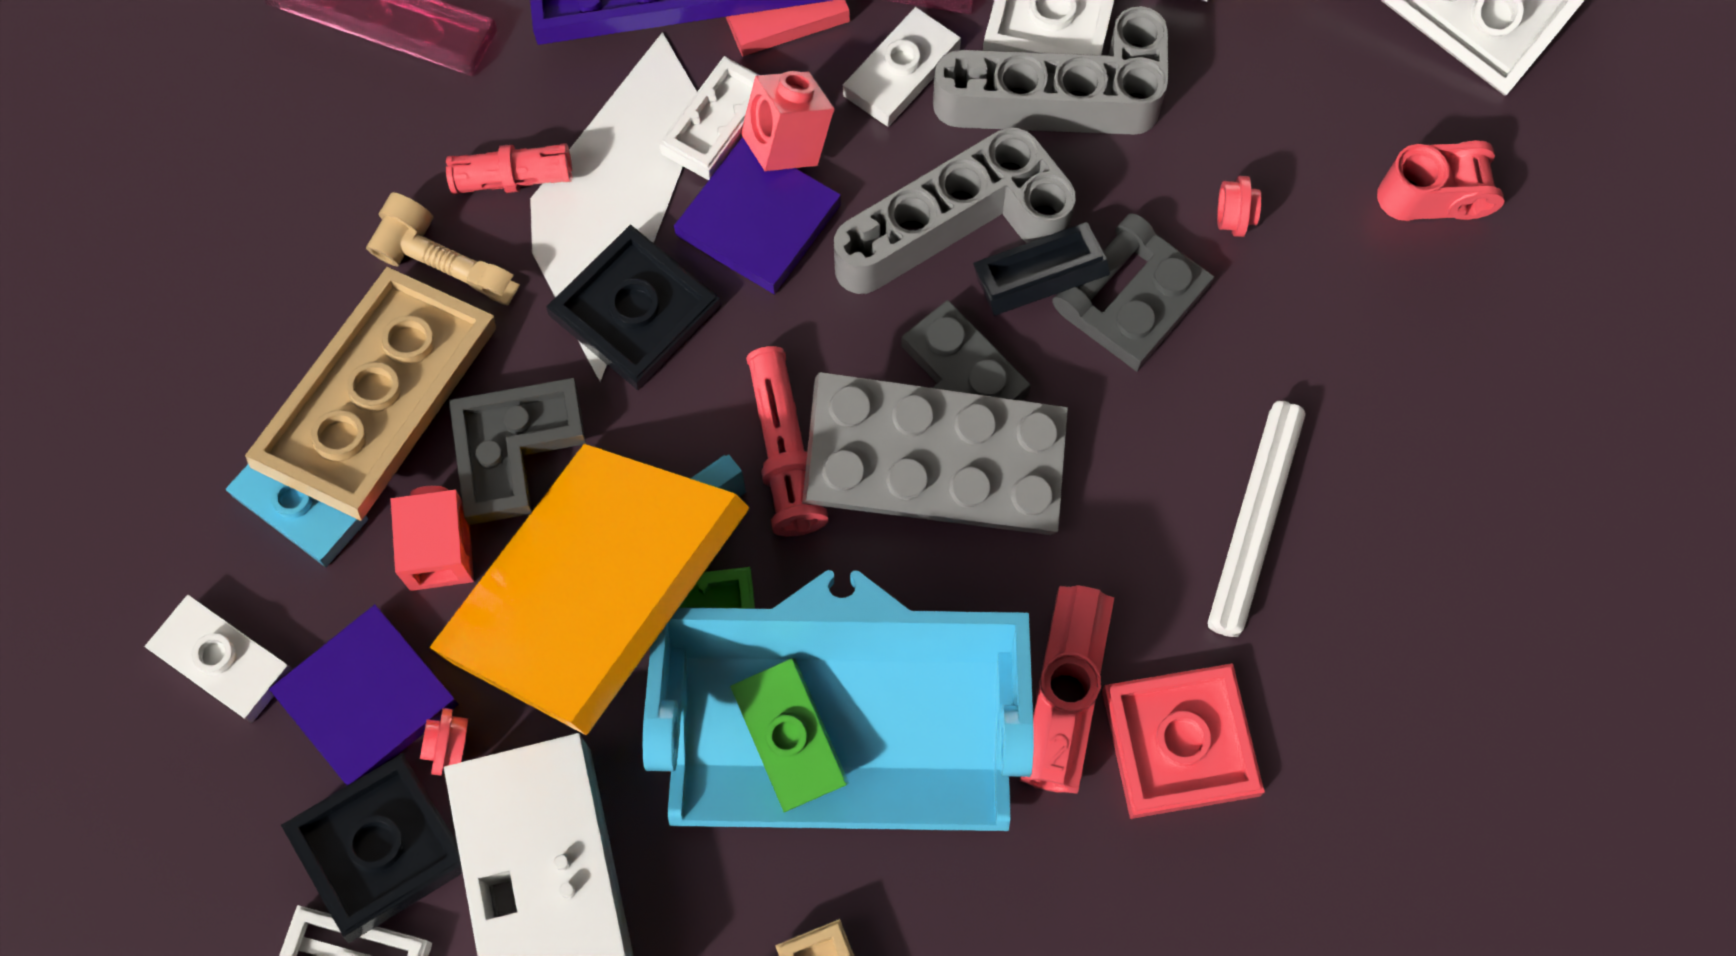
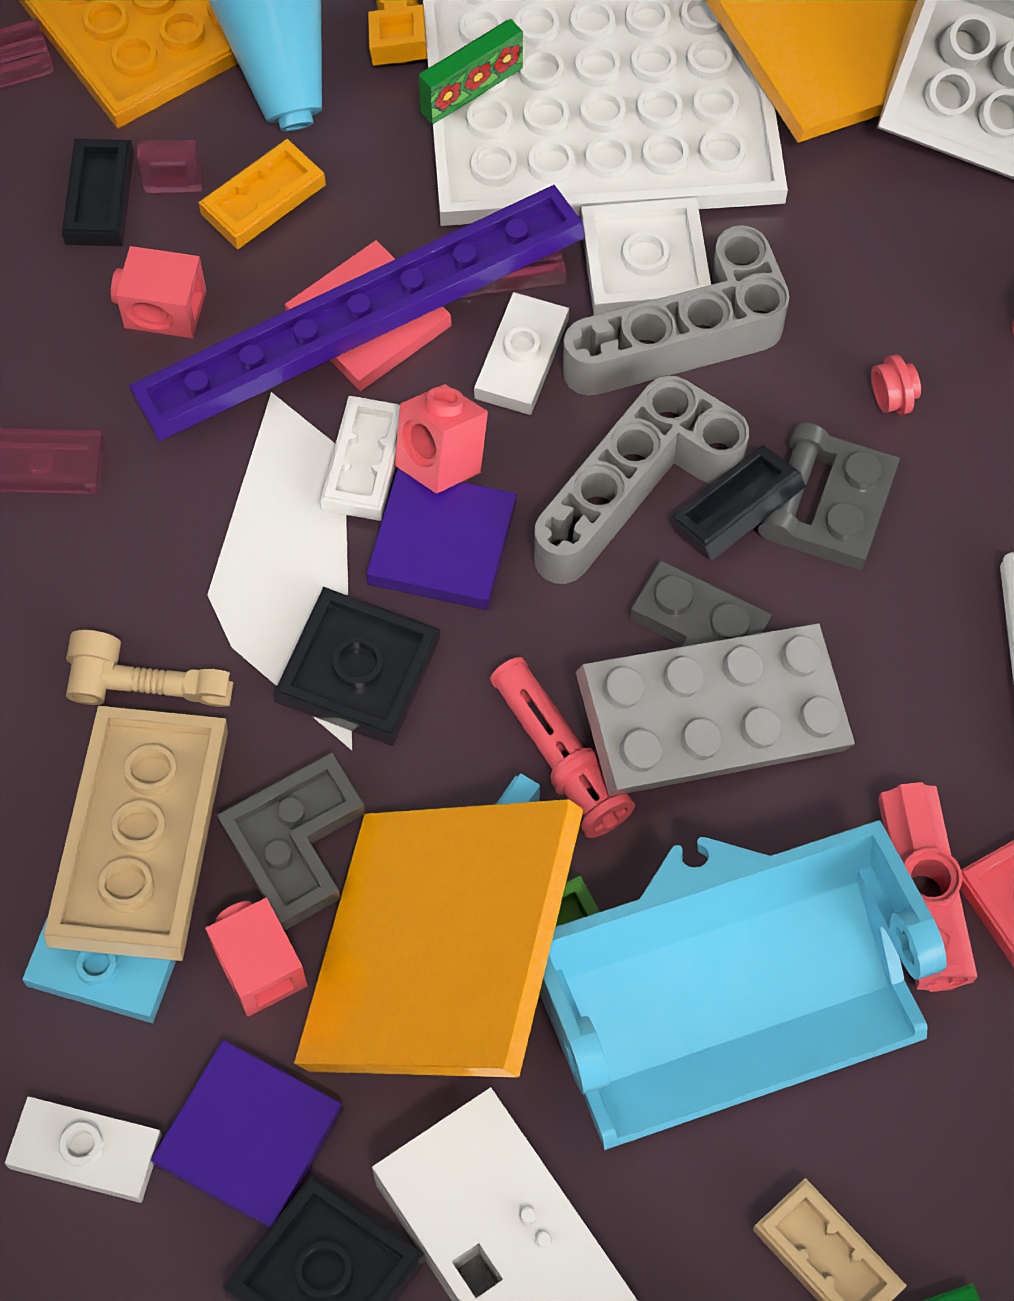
camera: 20 degrees left, 5 degrees down
(444, 740) = (351, 1148): coral plate -> none
(509, 168) = (178, 571): coral pin -> none
(789, 734) = (691, 1018): bright green plate -> none

